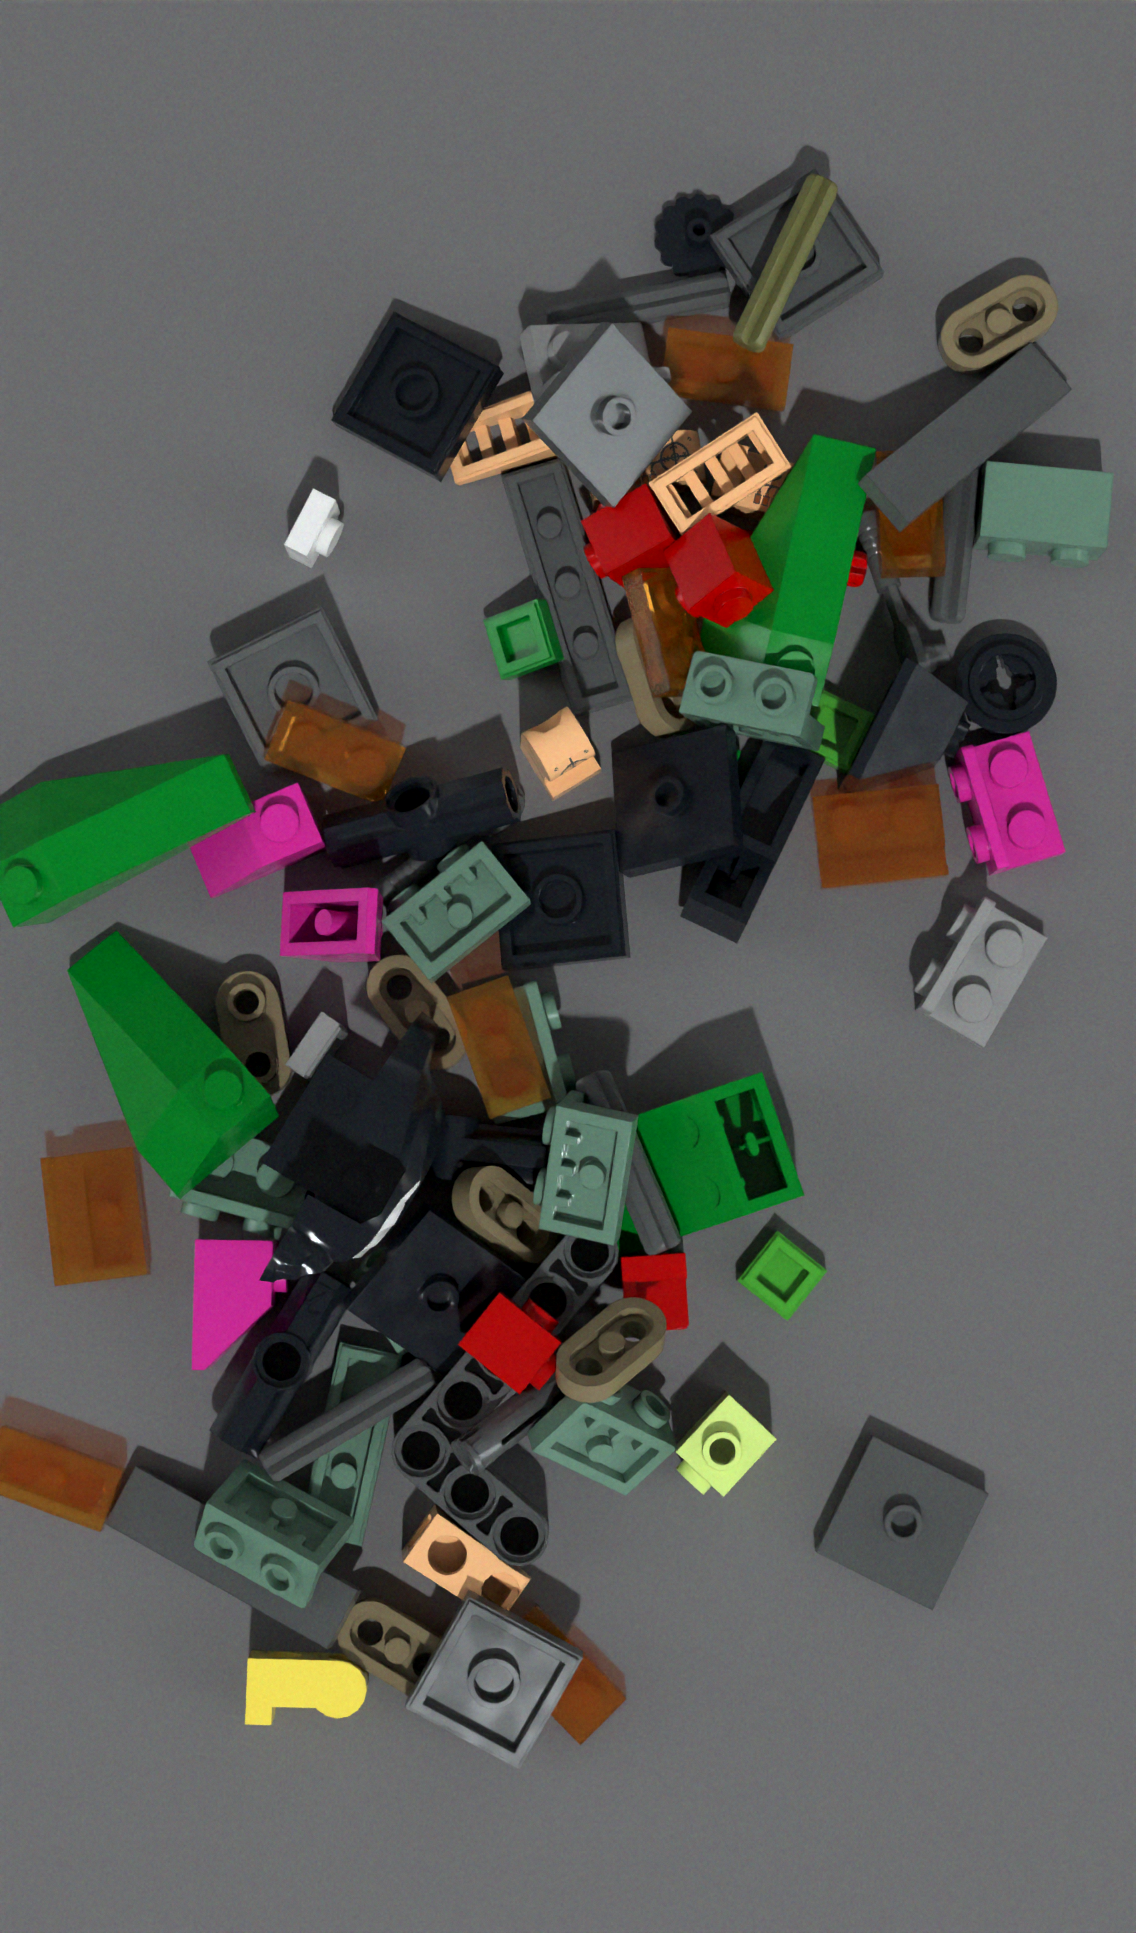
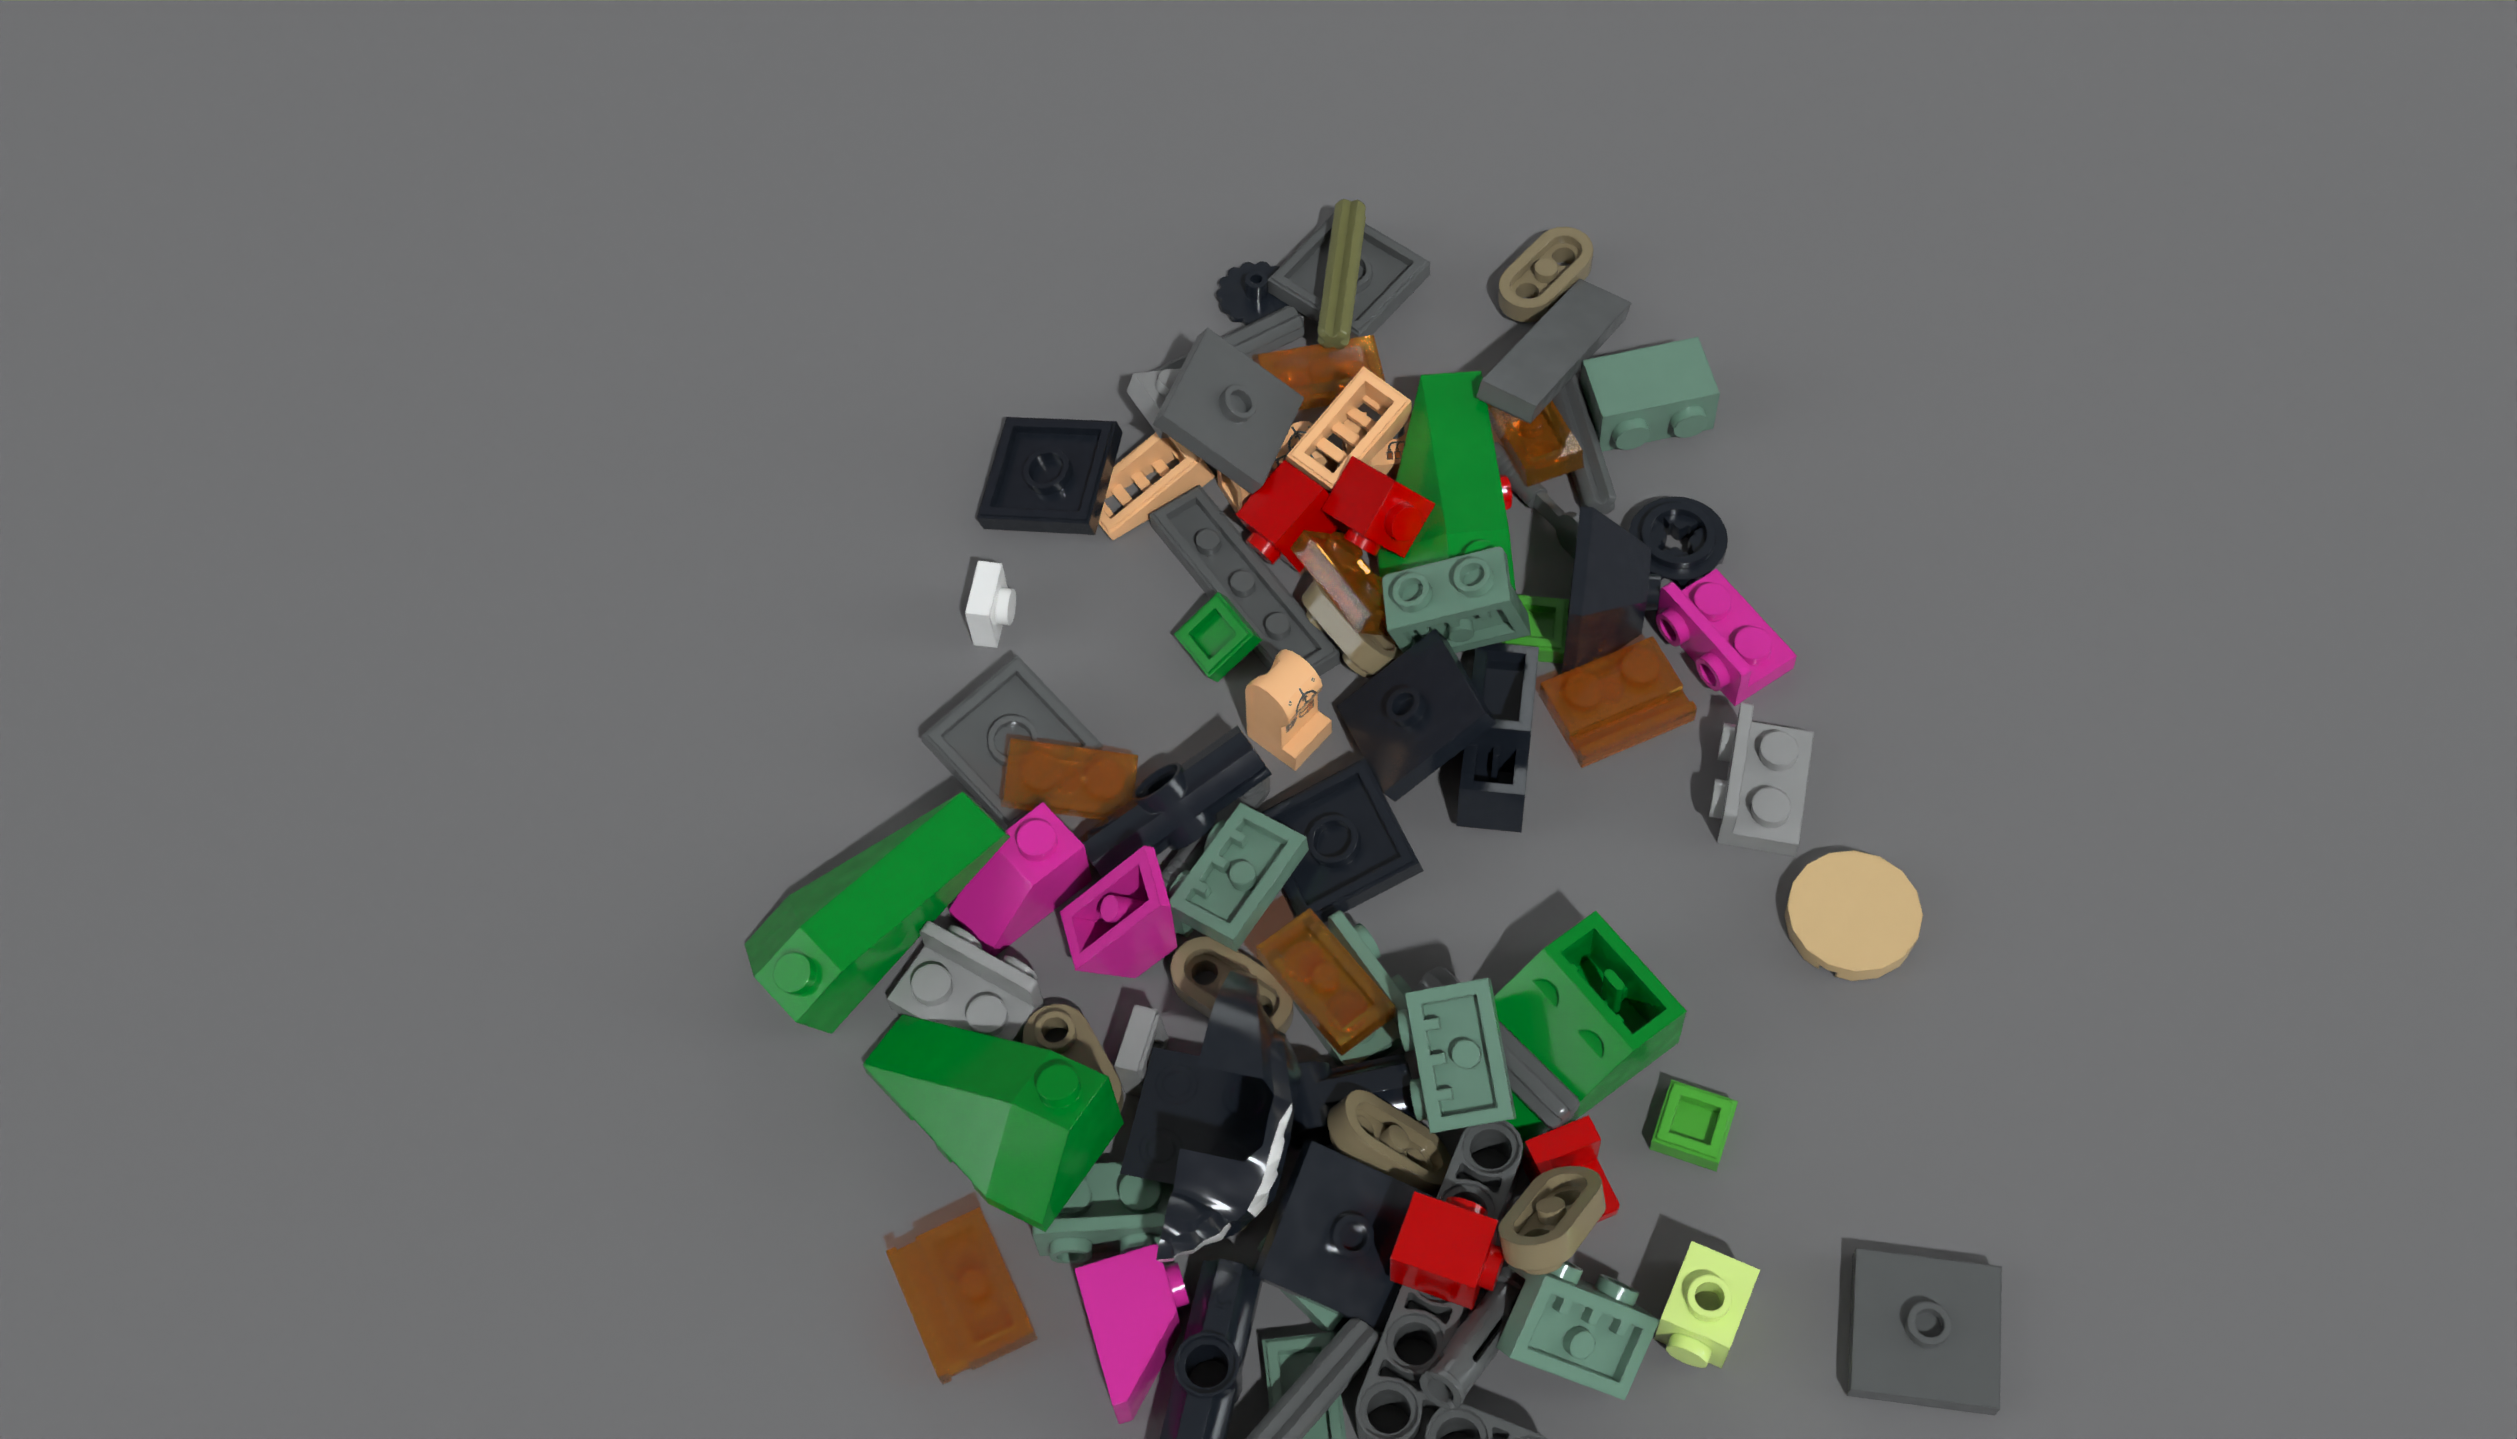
camera: 15 degrees left, 25 degrees down
(177, 935) = (966, 986): none -> light grey bracket
(1006, 1128) = (1853, 915): none -> tan tile

